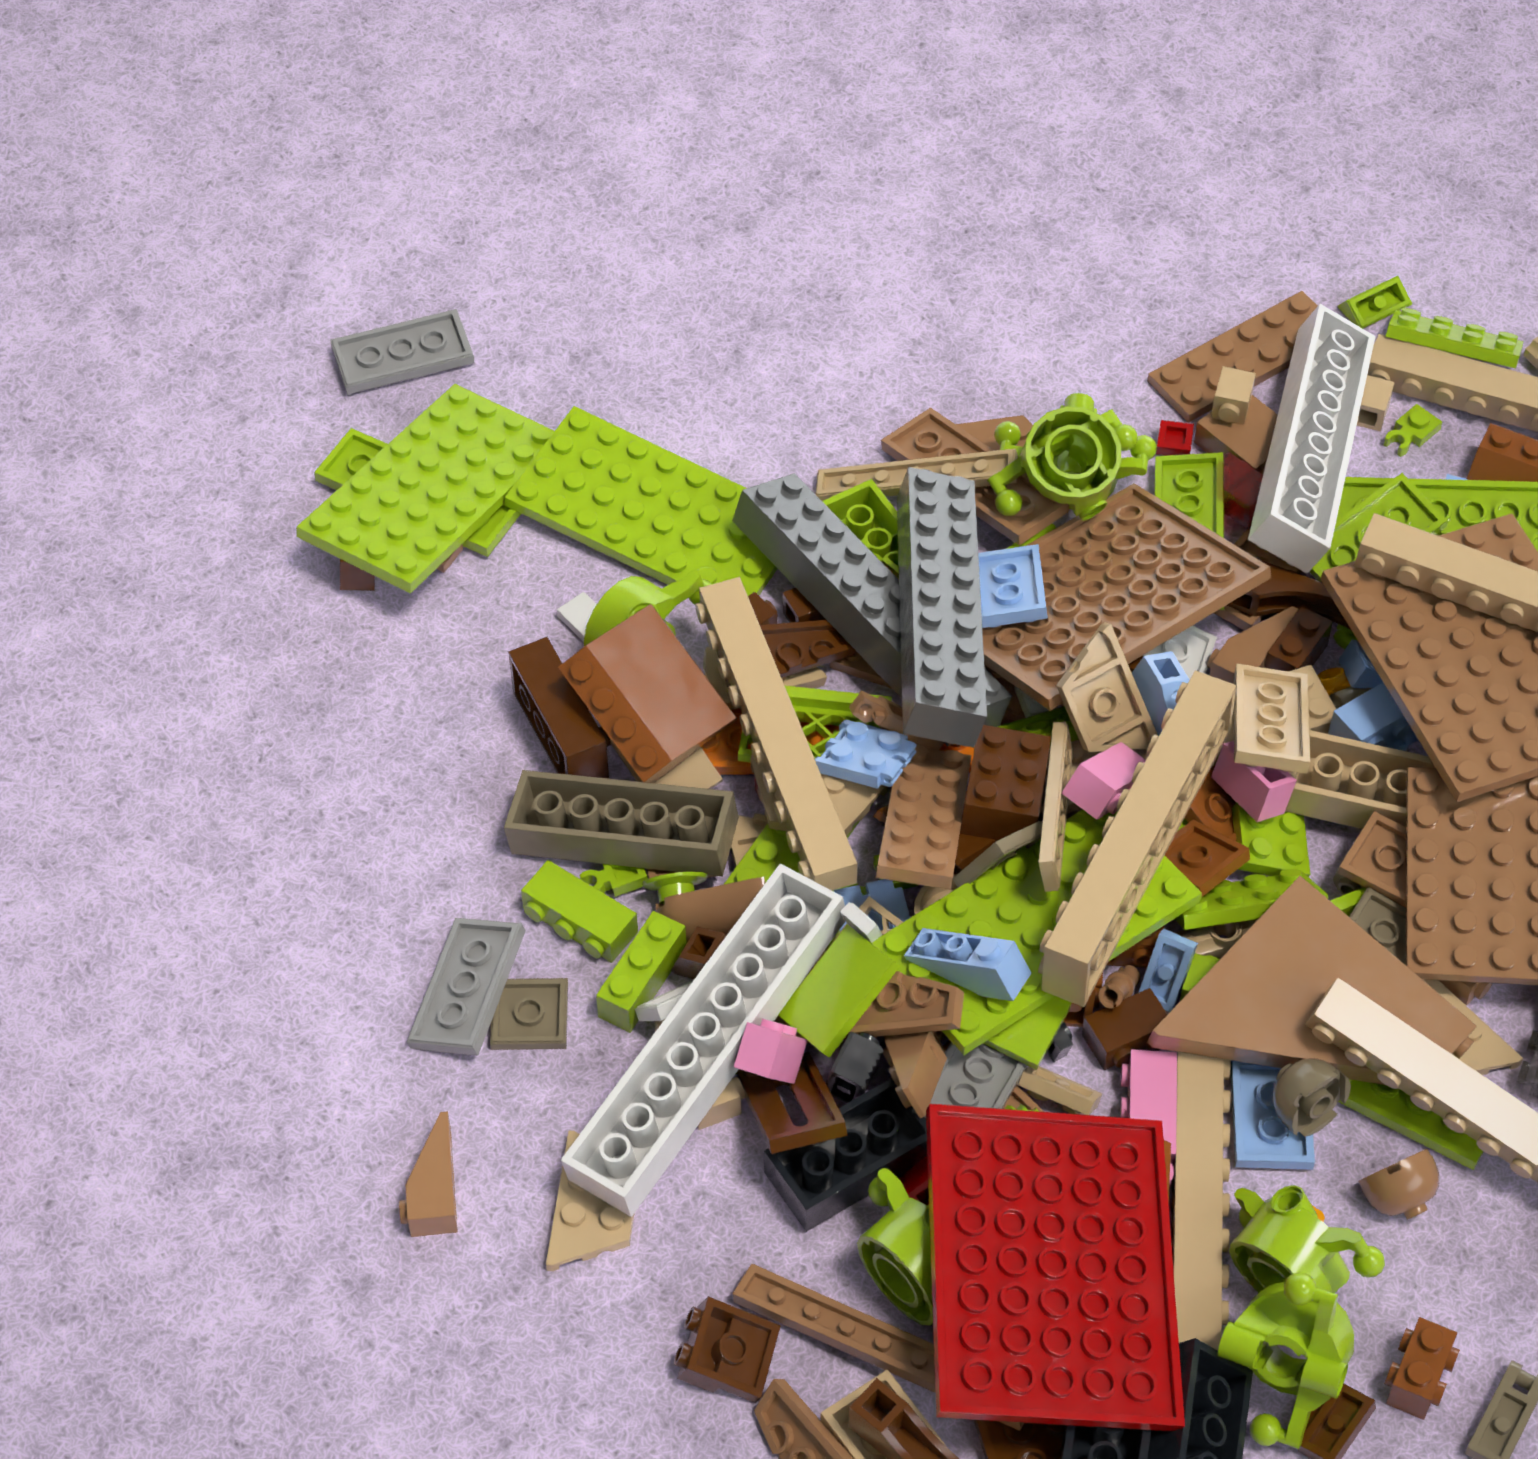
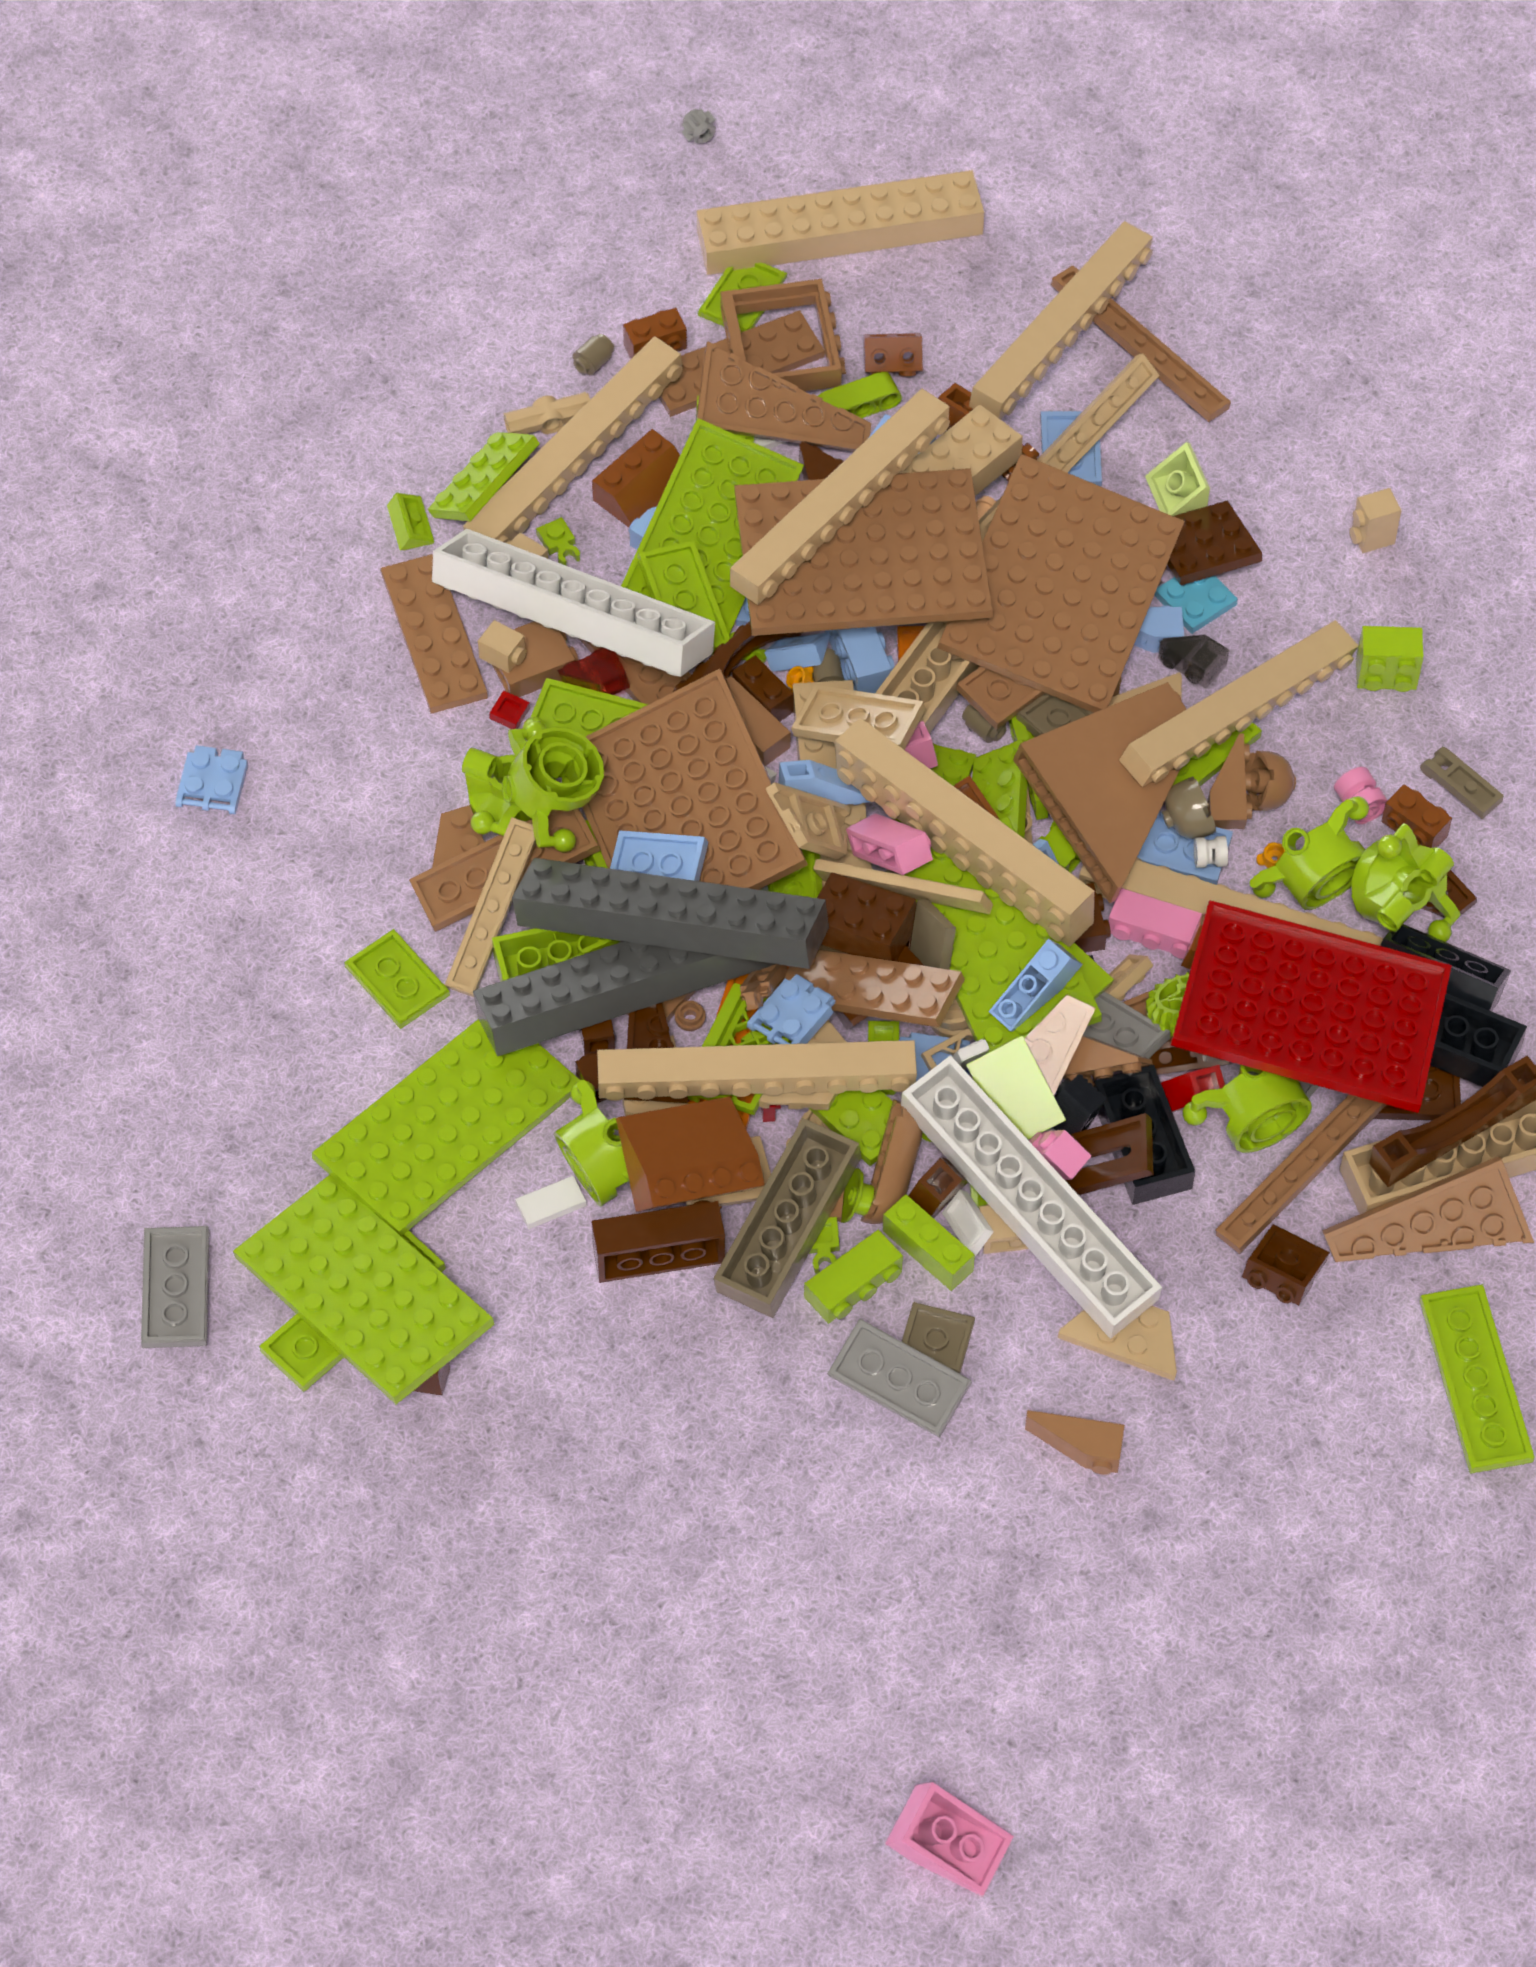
camera: 75 degrees left, 5 degrees up
(814, 433) = (397, 978): none -> lime tile
(862, 680) = (690, 1008): none -> medium nougat plate
(990, 230) = (212, 778): none -> light blue plate
(1265, 1136) = (1210, 852): none -> white wheel
(1368, 1142) = (1228, 794): none -> medium nougat slope
(1430, 1294) = (1361, 783): none -> bright pink wheel

